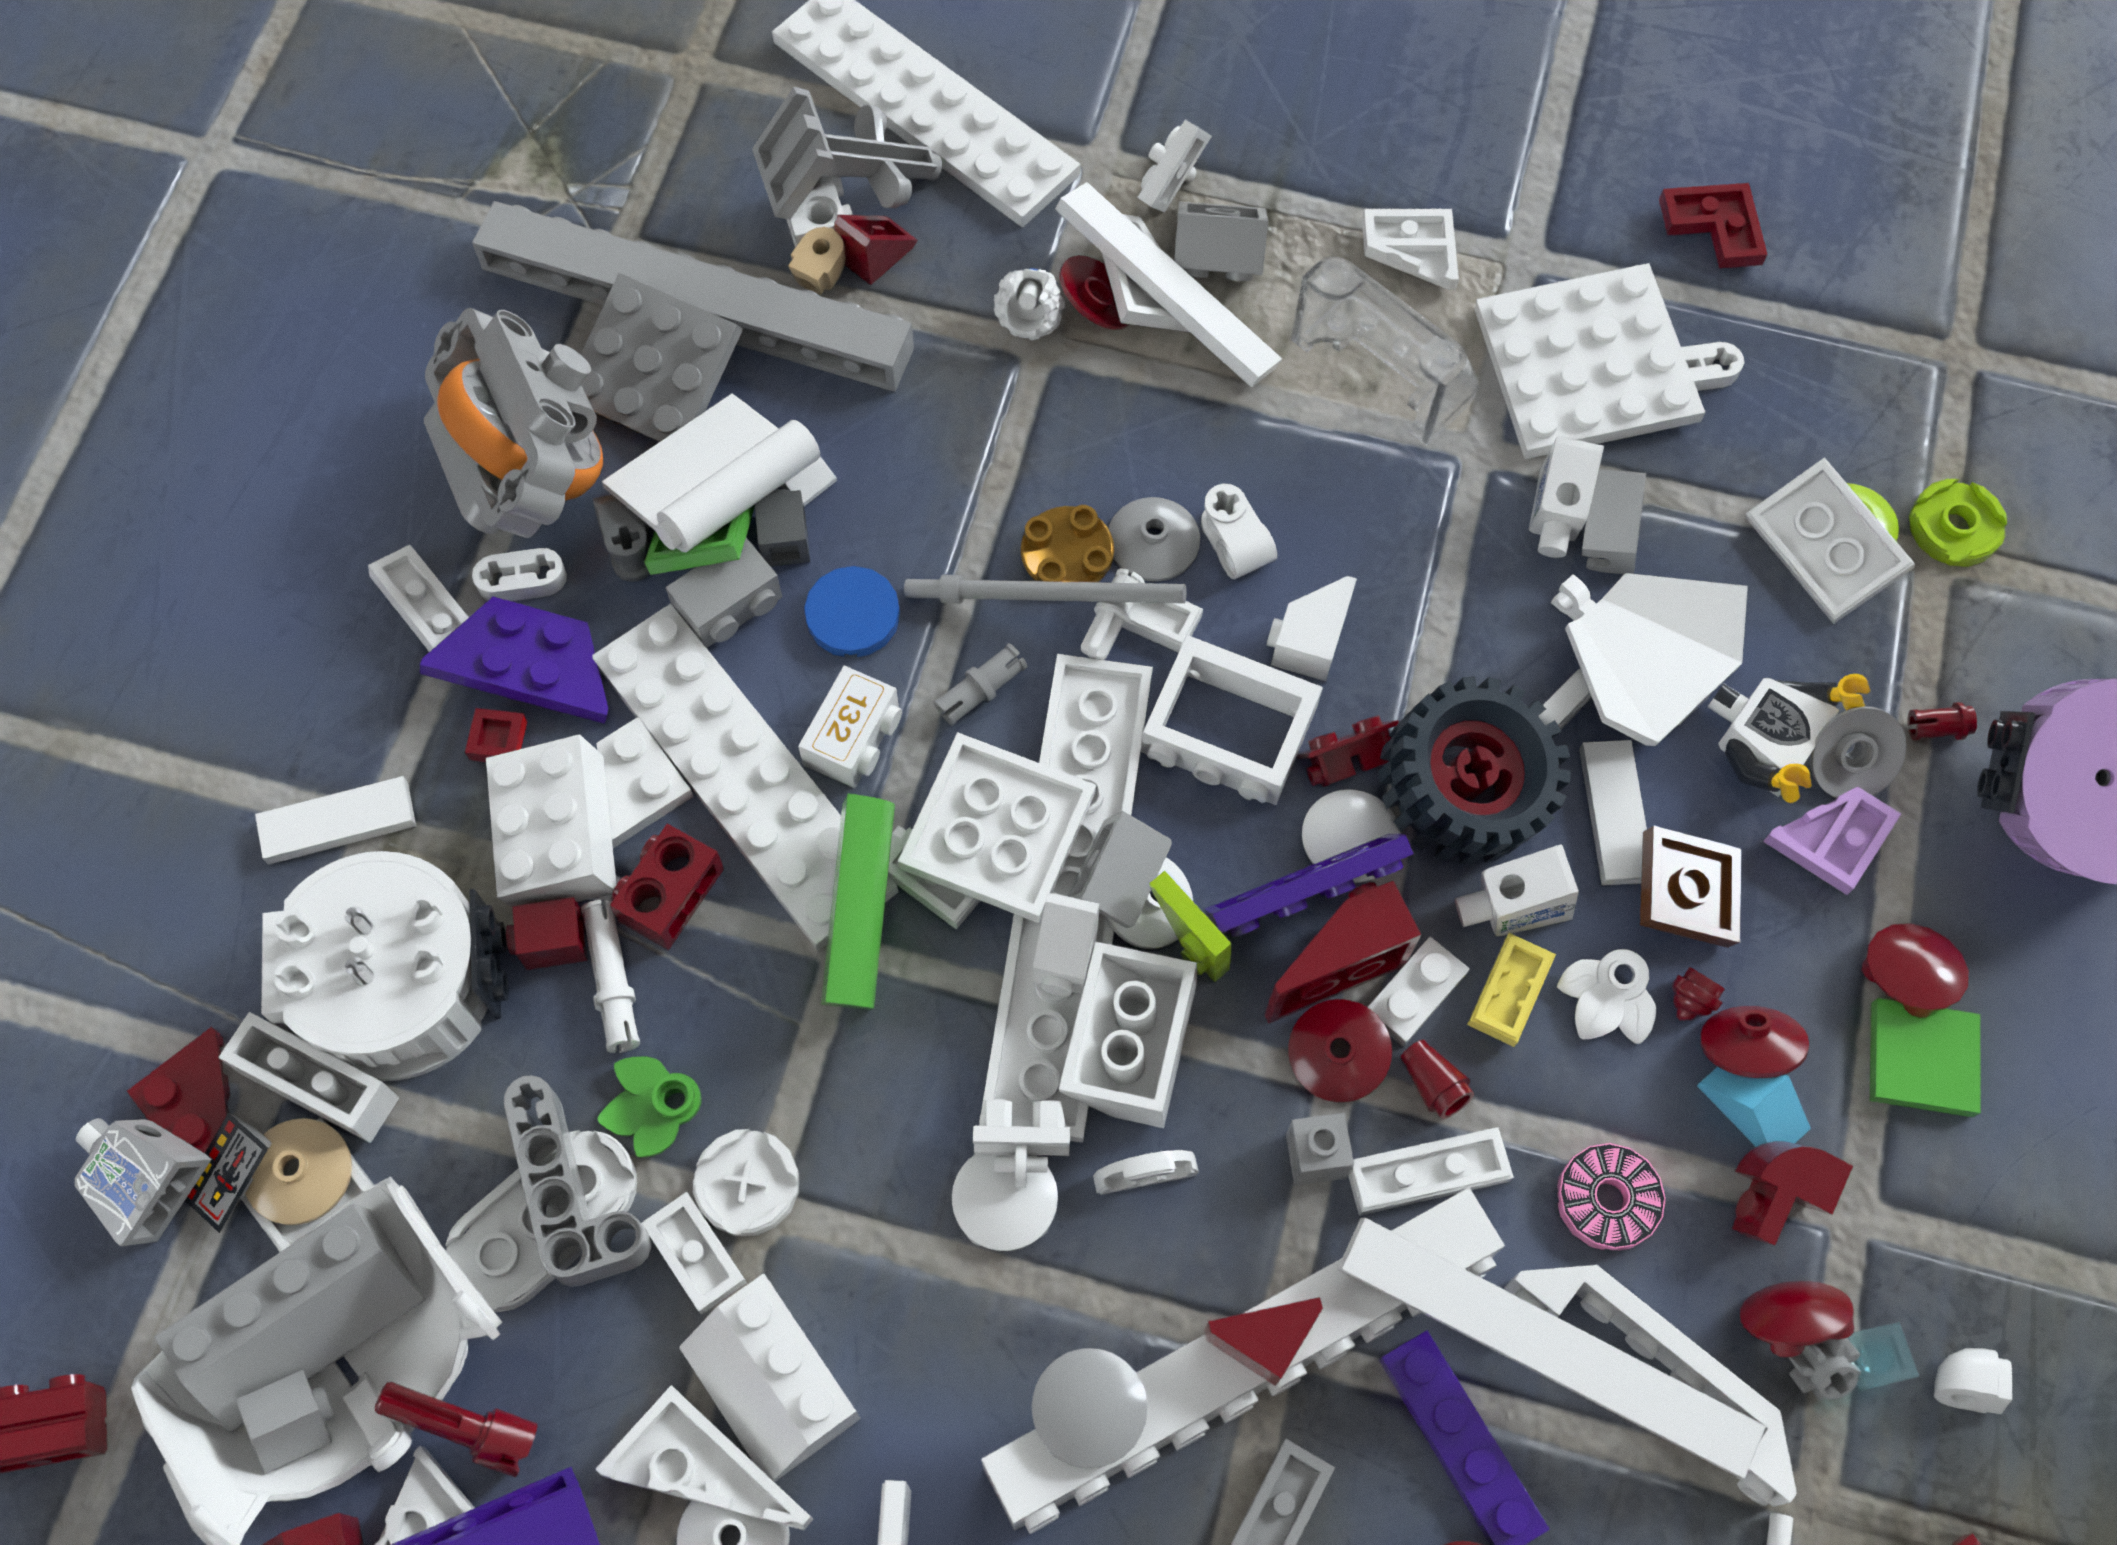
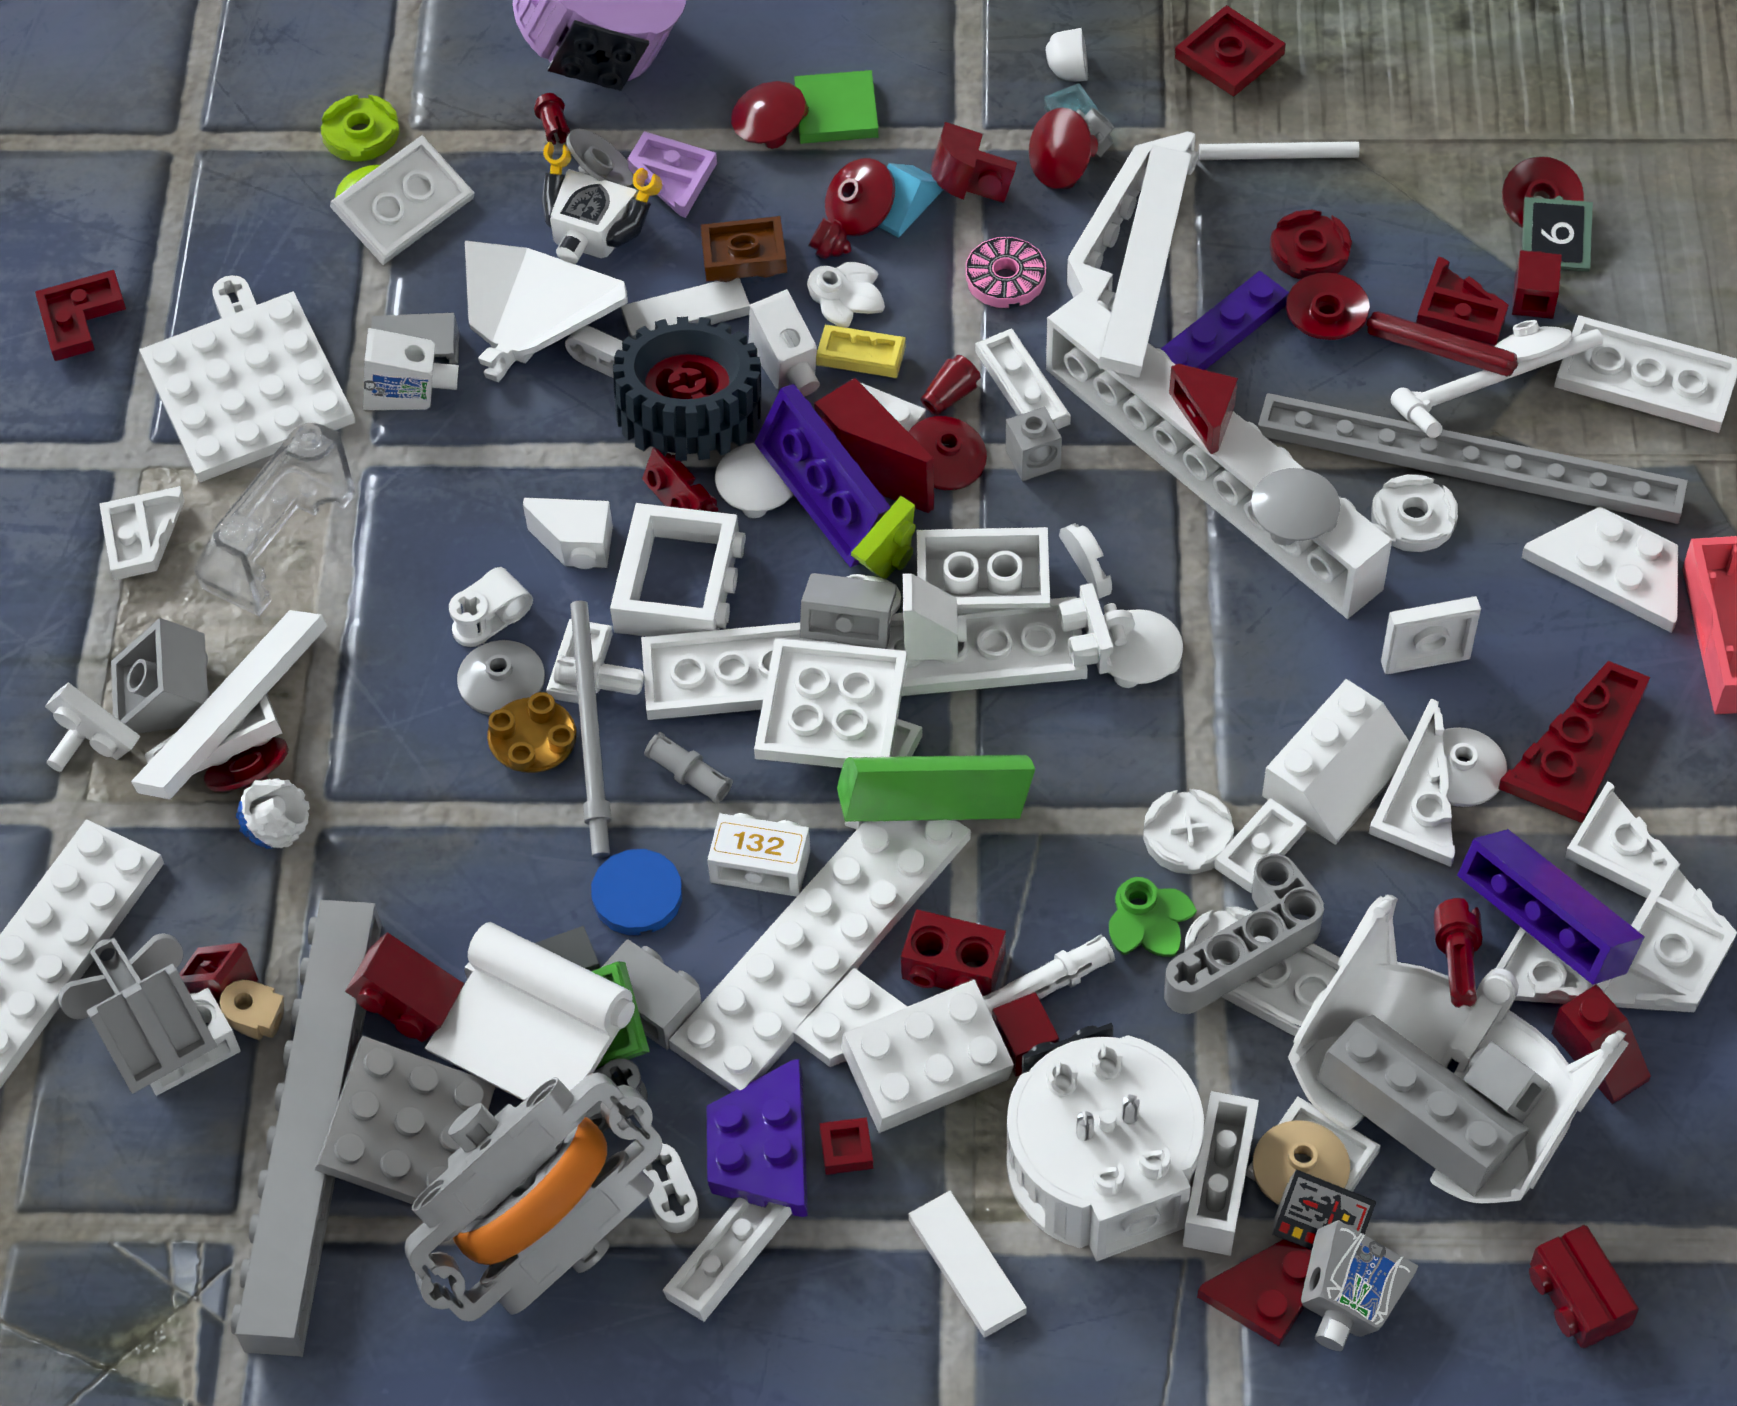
camera: 100 degrees left, 10 degrees down
(788, 374) = (404, 988): none -> dark red brick

